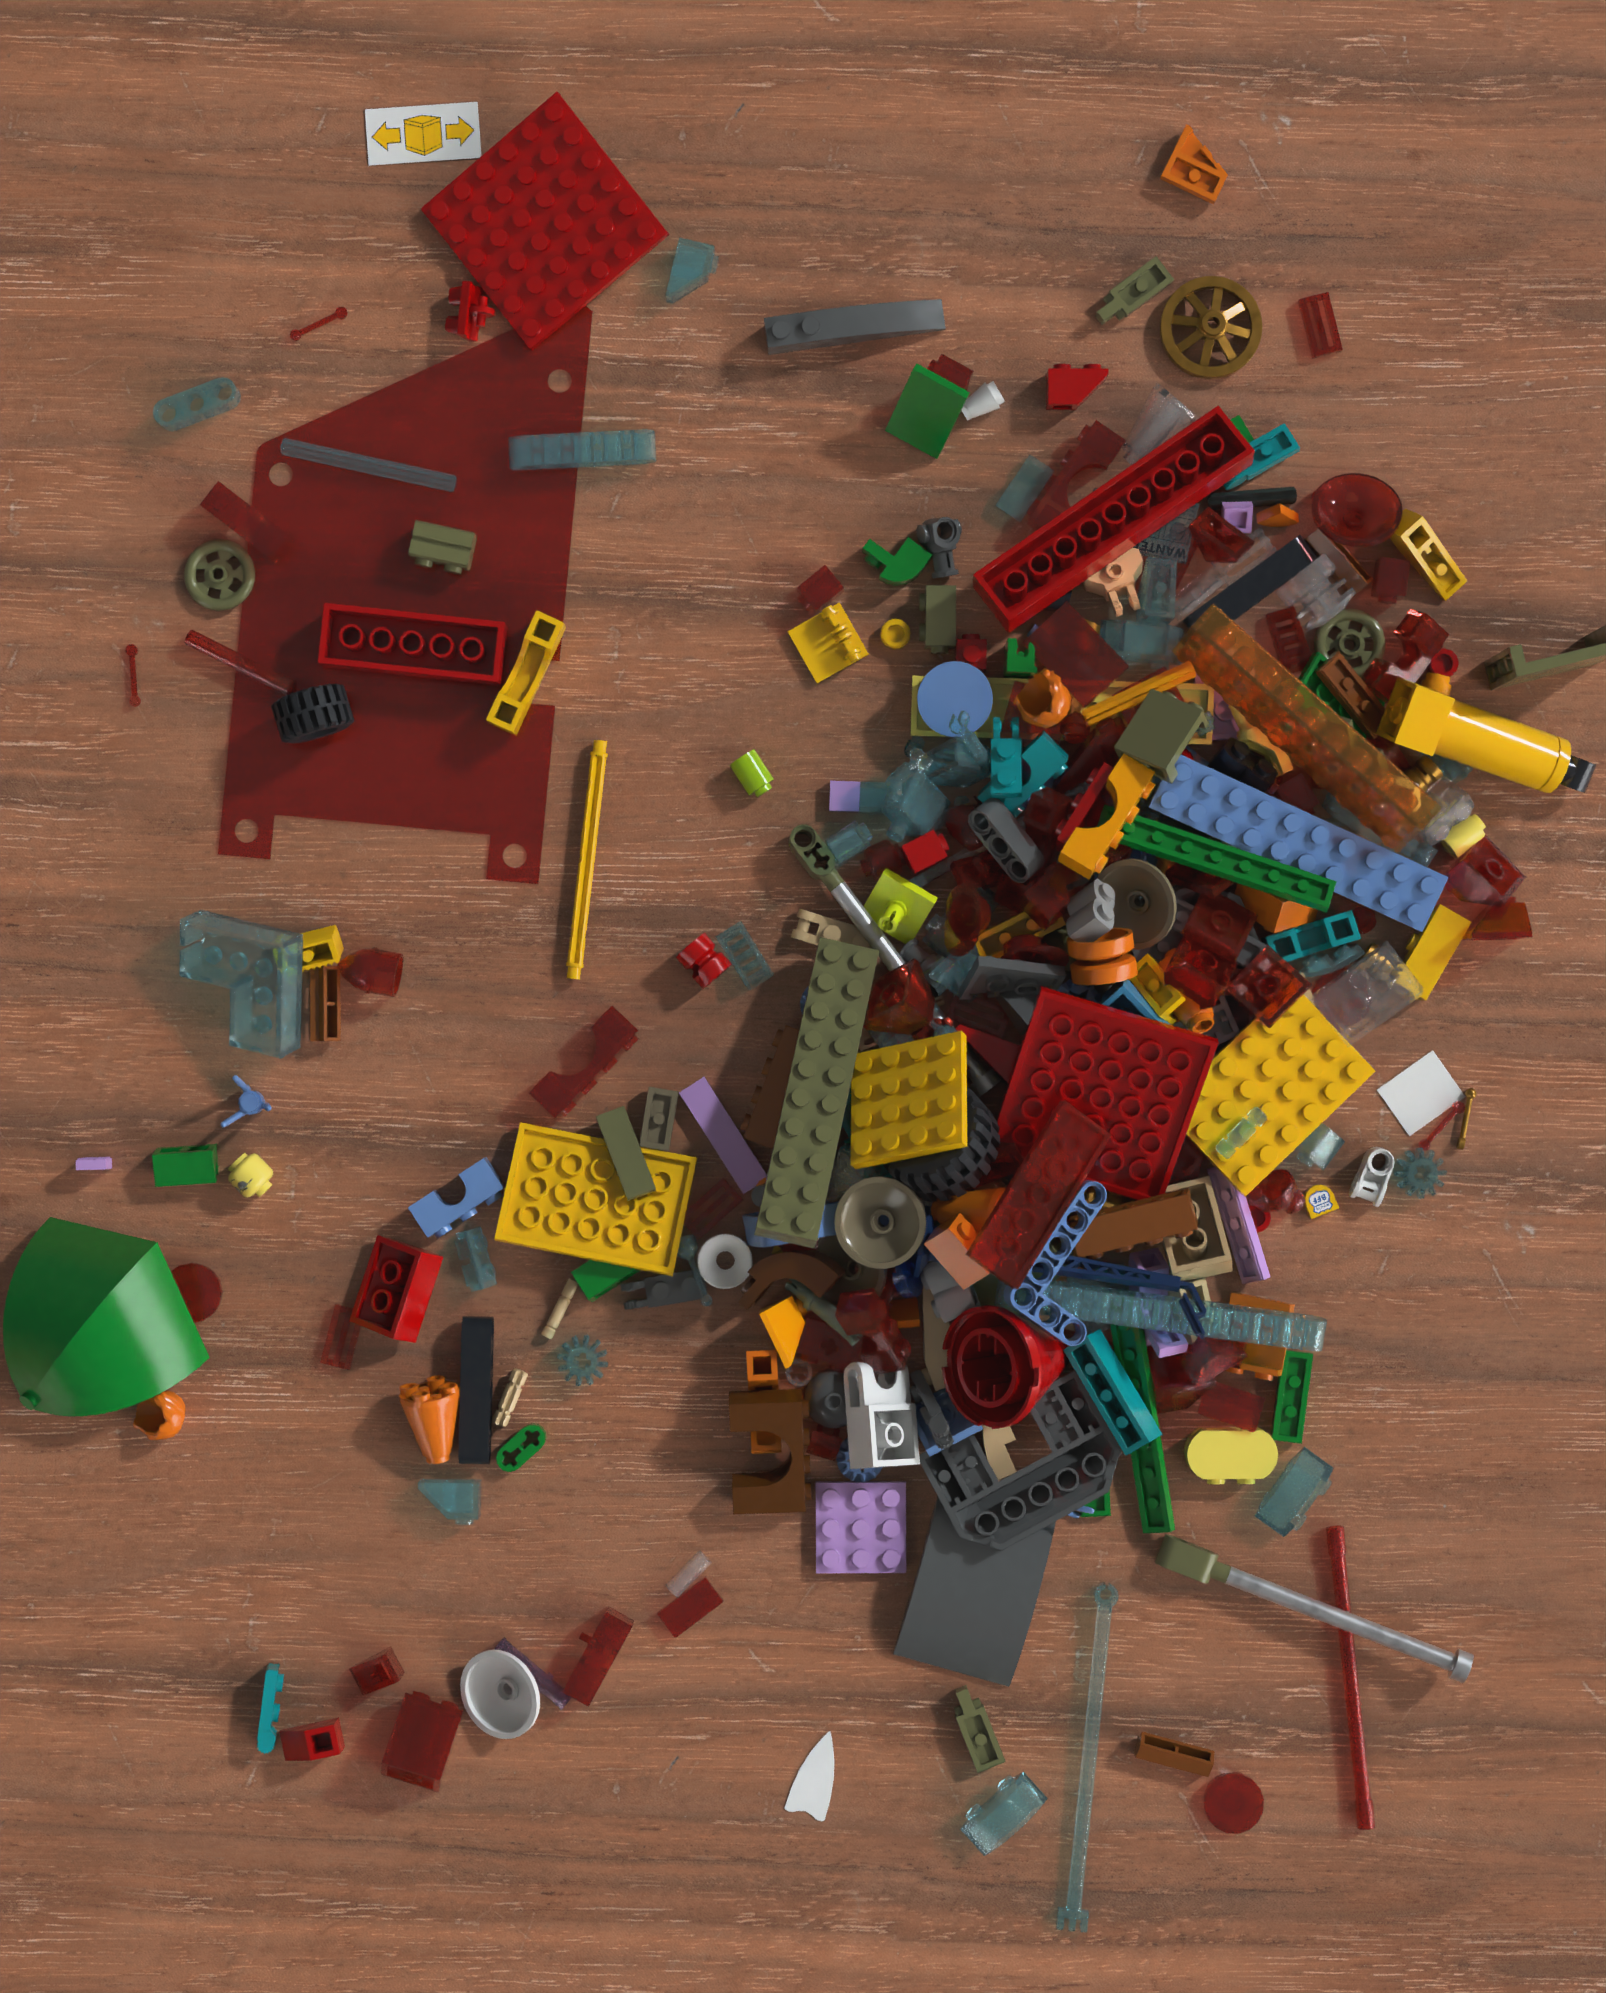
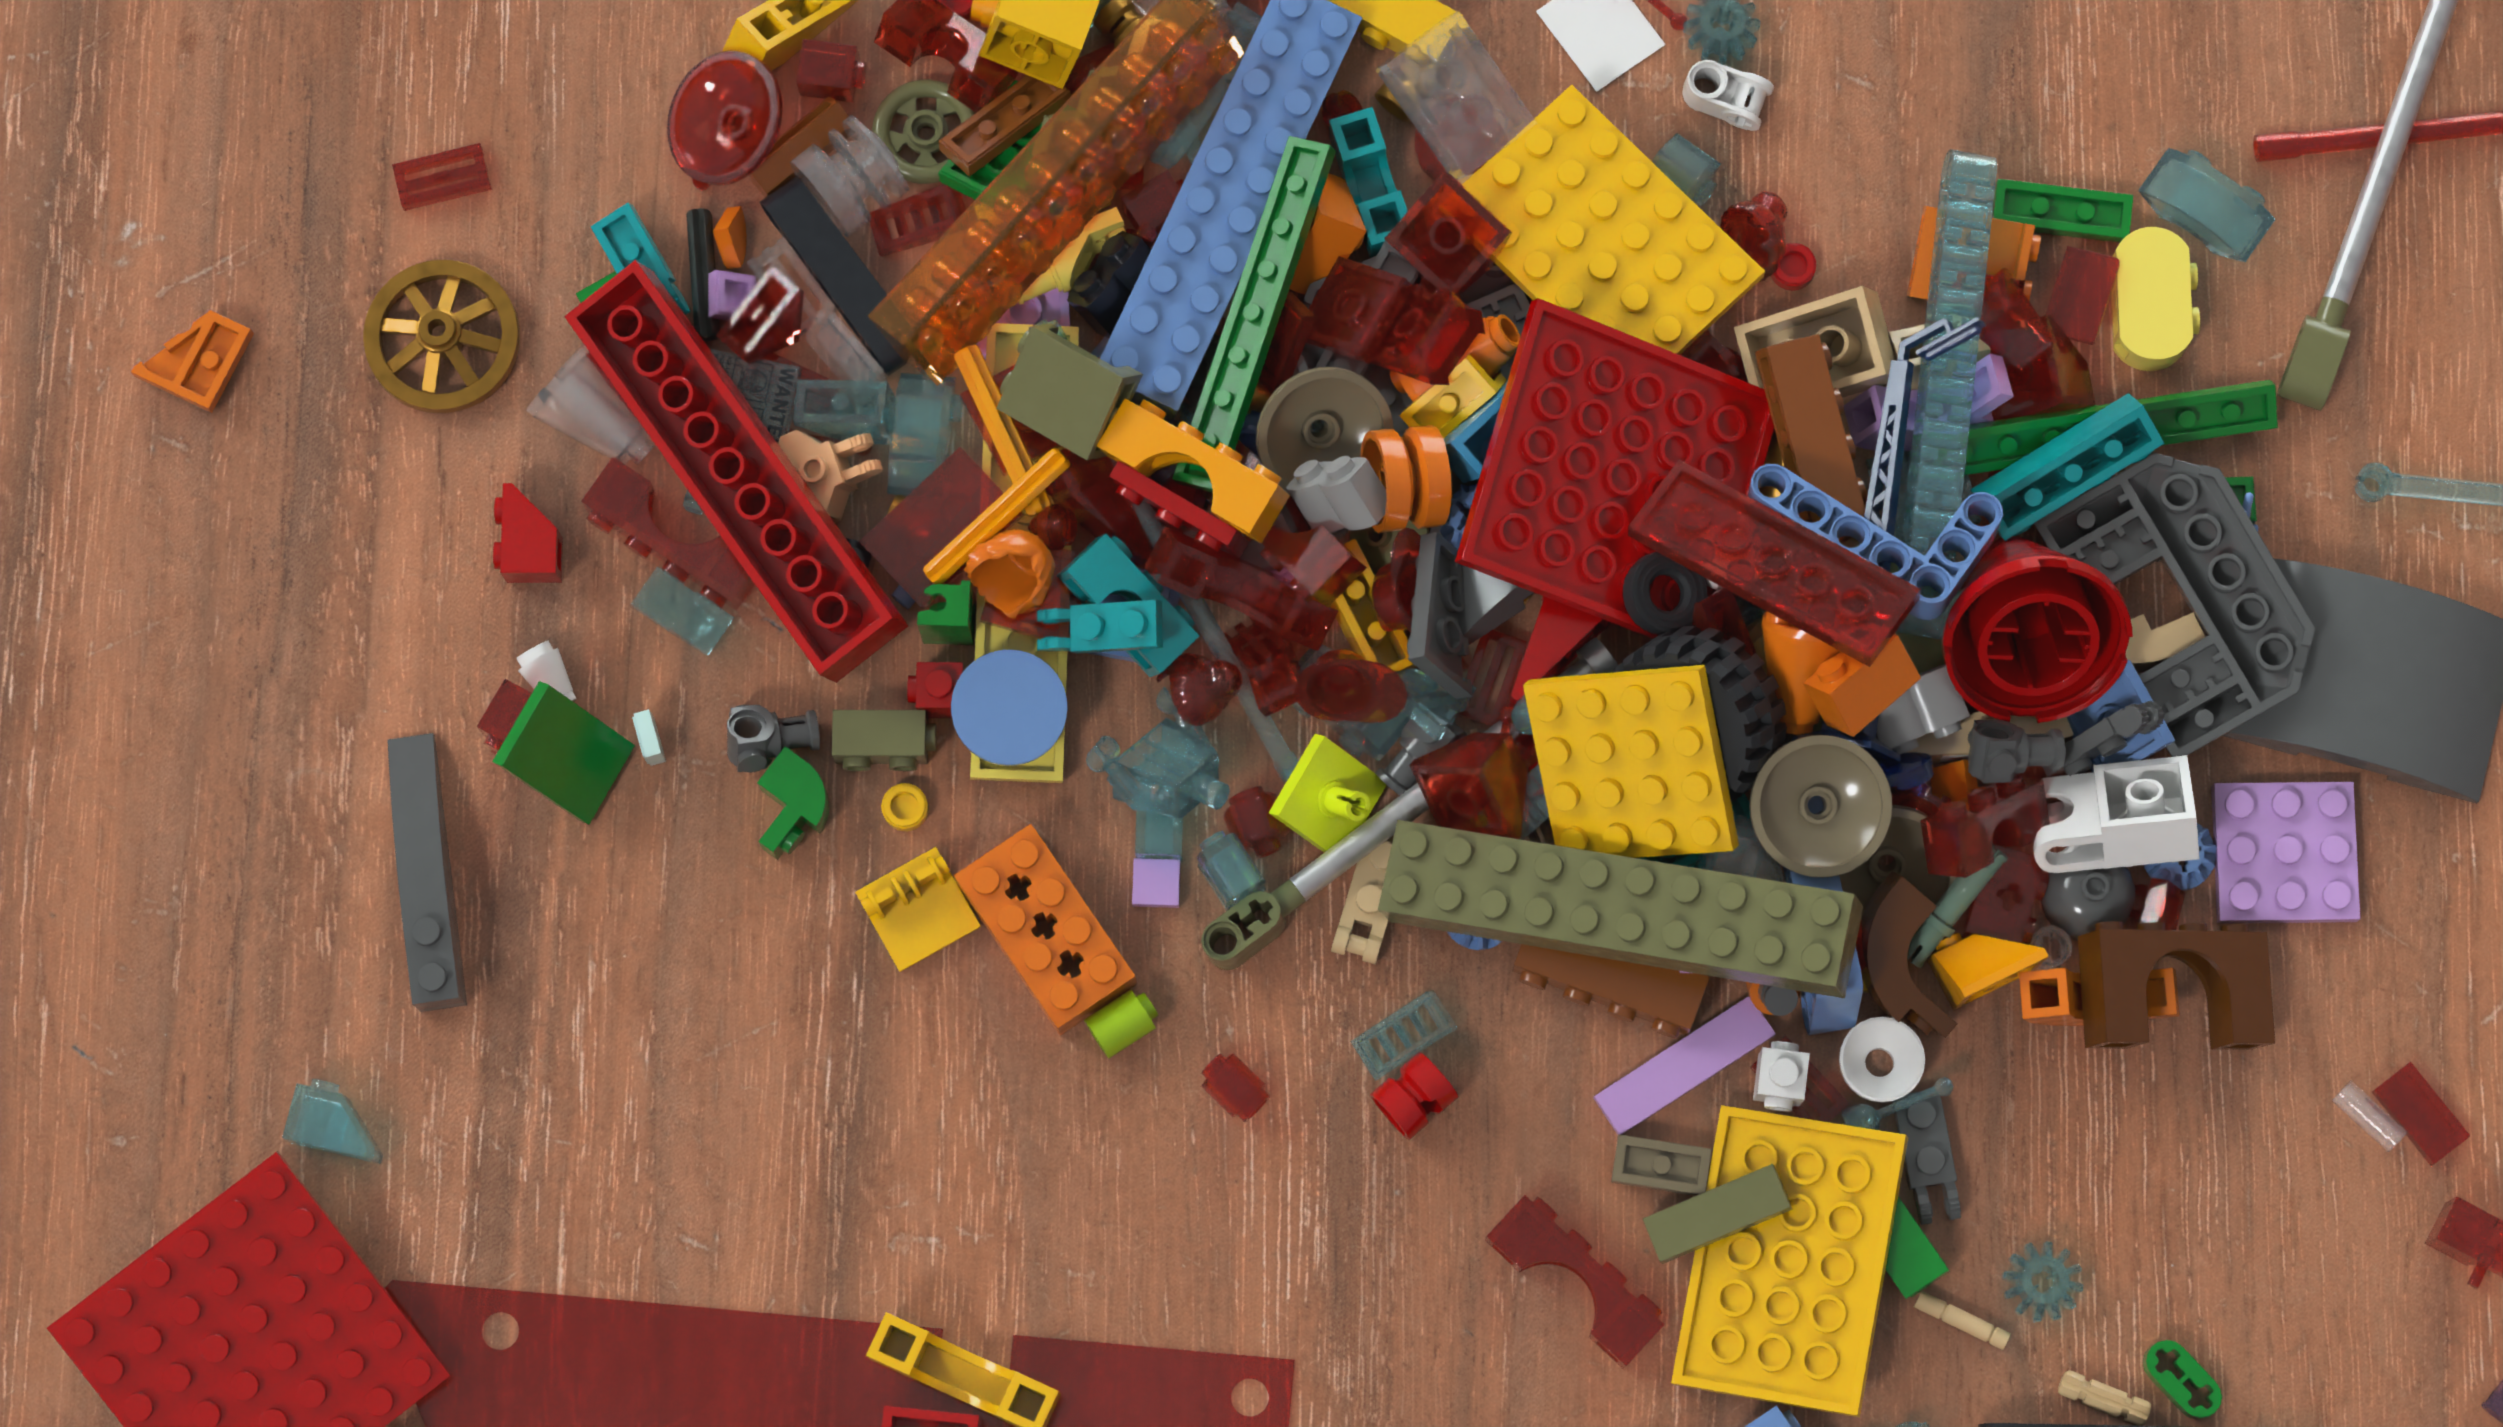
camera: 80 degrees left, 10 degrees down
(582, 449) = (611, 1291): clear light blue beam -> none
(587, 859) = (1256, 1282): yellow piece -> none
(710, 846) = (1234, 1086): none -> clear red brick
(712, 1195) = (1781, 1076): none -> white brick
(813, 704) = (1050, 898): none -> orange brick
(819, 590) = (837, 921): clear red brick -> none
(923, 1344) = (2003, 750): none -> dark grey connector
(925, 852) = (1244, 753): red brick -> none
(940, 467) = (648, 737): none -> light aqua tile
(959, 760) = (1103, 703): clear light blue torso -> none
(1006, 840) = (1227, 625): dark grey beam -> none
(1018, 1107) = (1639, 602): none -> black tyre
(1080, 689) = (997, 515): none -> light orange axle
(1135, 291) = (383, 447): olive hinge -> none
(1239, 1229) = (1810, 282): lavender tile -> none
(1241, 1132) = (1670, 274): clear light blue axle -> none
(1319, 1201) = (1766, 171): tile -> none
(1323, 964) = (1410, 165): clear light blue slope -> none

